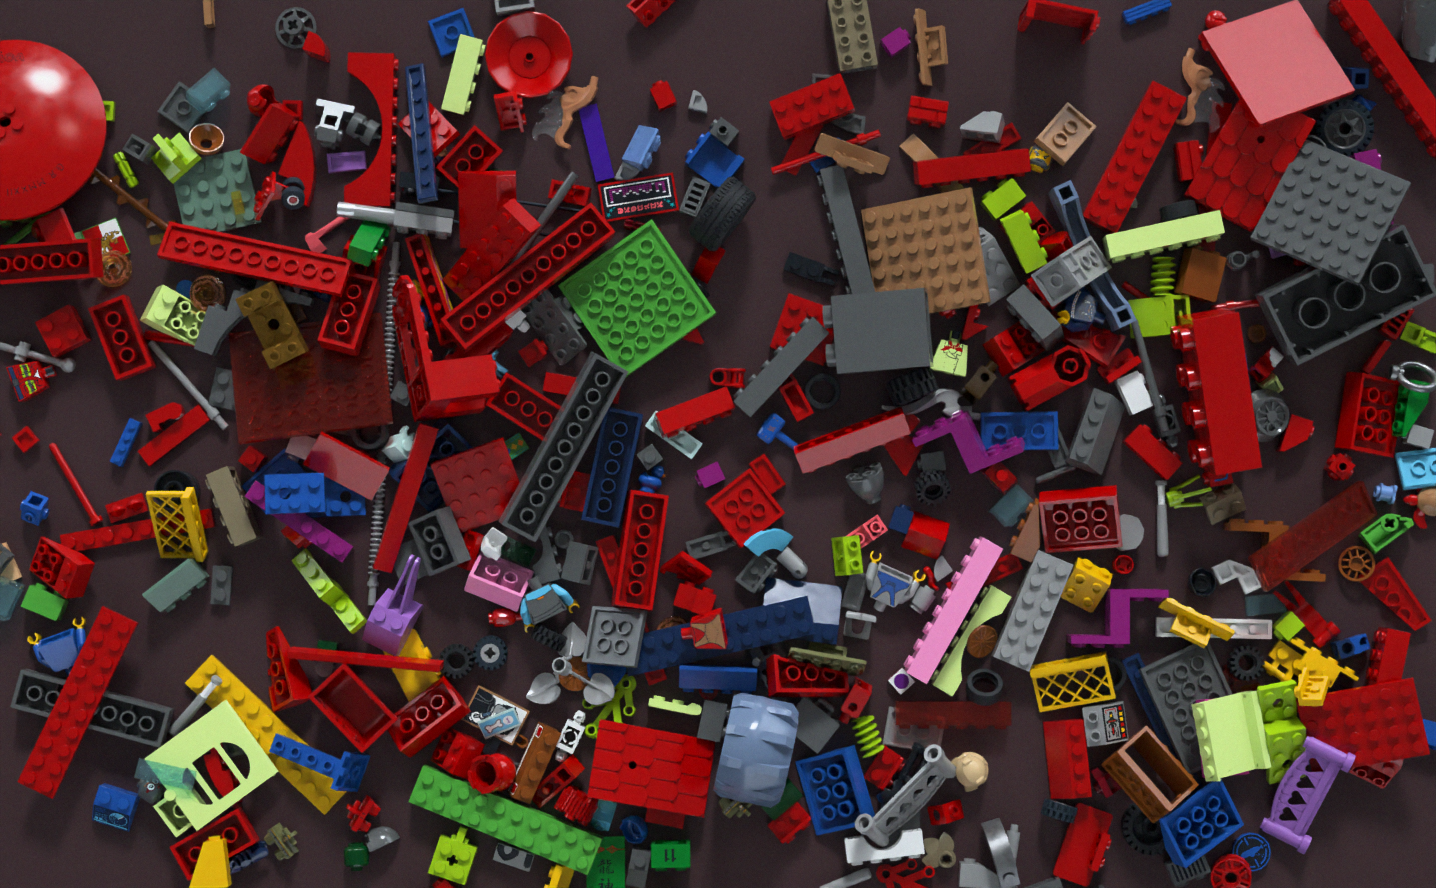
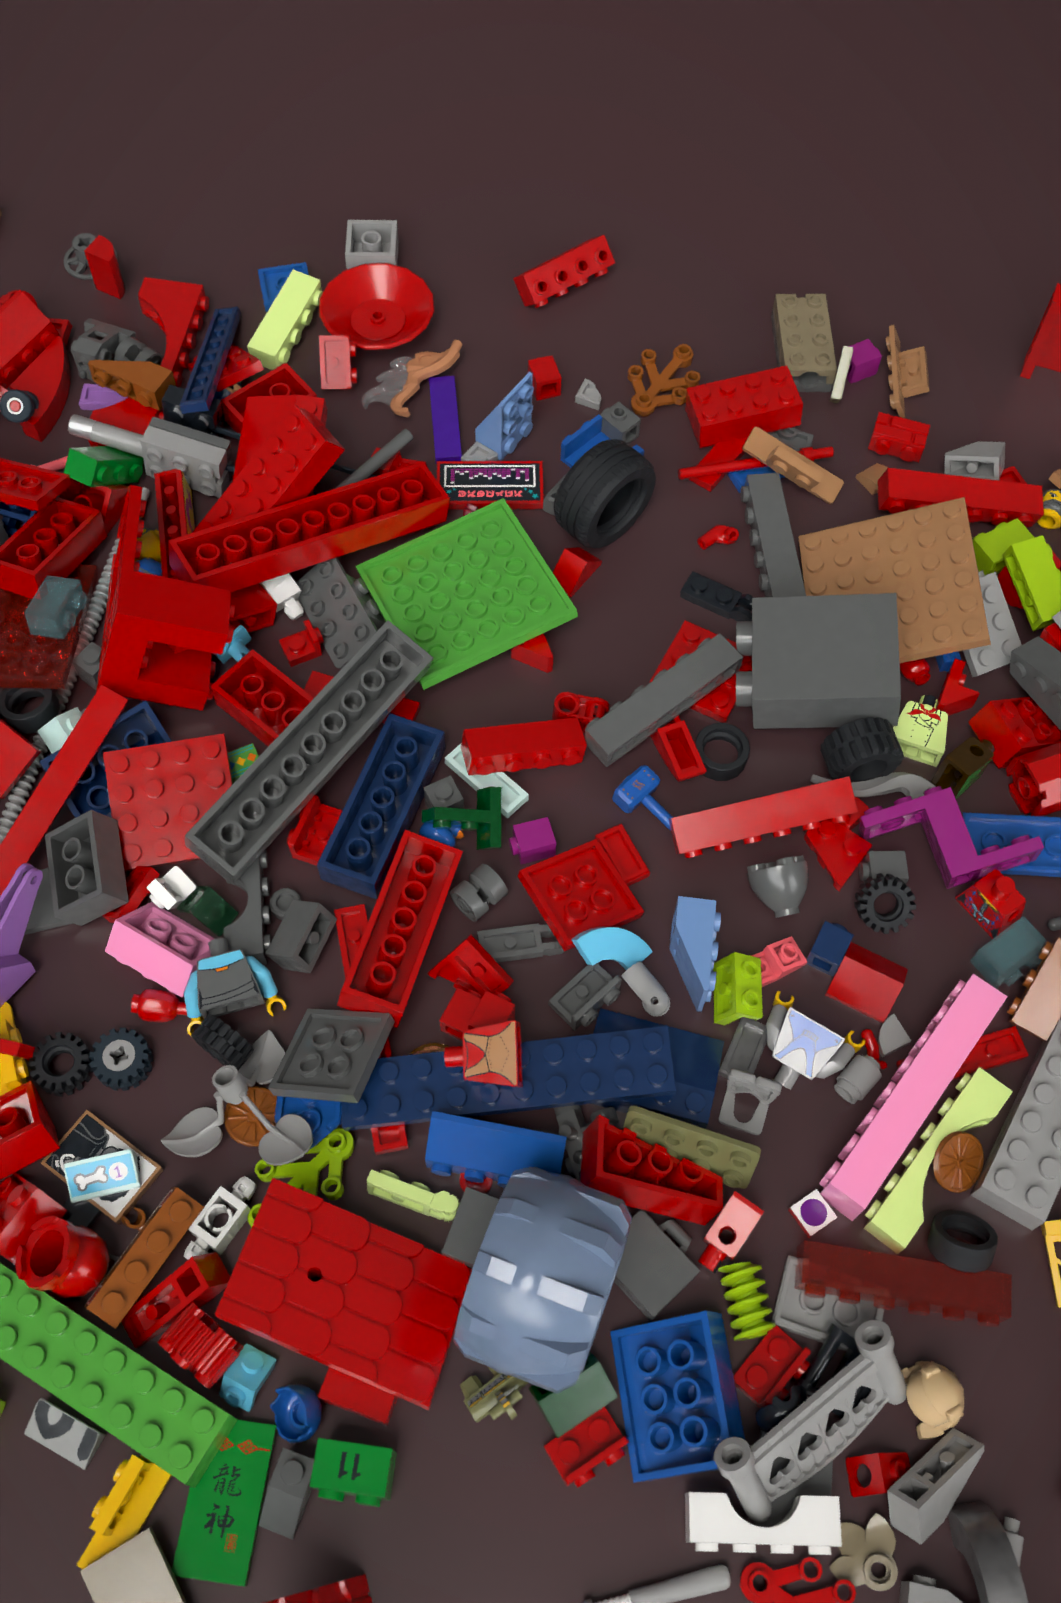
camera: 10 degrees right, 25 degrees down
(370, 363) = (55, 607): none -> clear light blue piece
(374, 160) = (133, 379): none -> dark orange slope
(677, 469) = (484, 819): none -> dark green bracket
(682, 516) = (482, 889): none -> dark grey wheel
(749, 84) = (644, 401): none -> dark orange plant
(805, 216) = (718, 534): none -> red arm
(816, 530) = (695, 947): none -> medium blue slope
(882, 59) = (841, 375): none -> tile
(971, 816) = (932, 1485): none -> light grey slope

